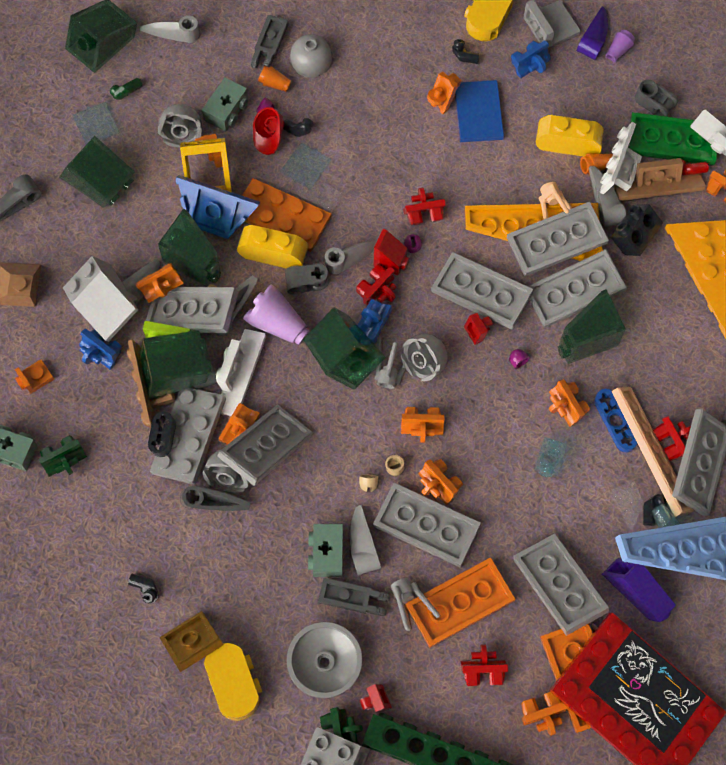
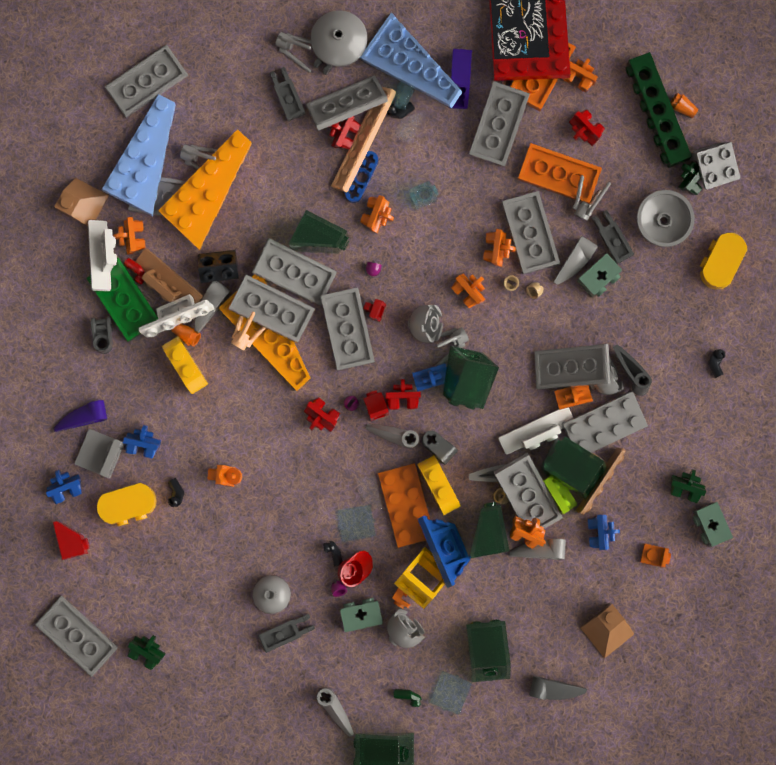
camera: 130 degrees left, 15 degrees up
(100, 297) = (572, 557): slope -> none
(163, 434) = (618, 433): black beam -> none
(191, 641) = (723, 304): pearl gold plate -> none
(274, 79) = (311, 602): orange cone -> none
(276, 316) = (483, 438): lavender cone -> none
(377, 699) = (658, 172): red tile -> none
(479, 111) = (213, 444): blue tile -> none
(621, 44) = (78, 392): medium lavender cone -> none

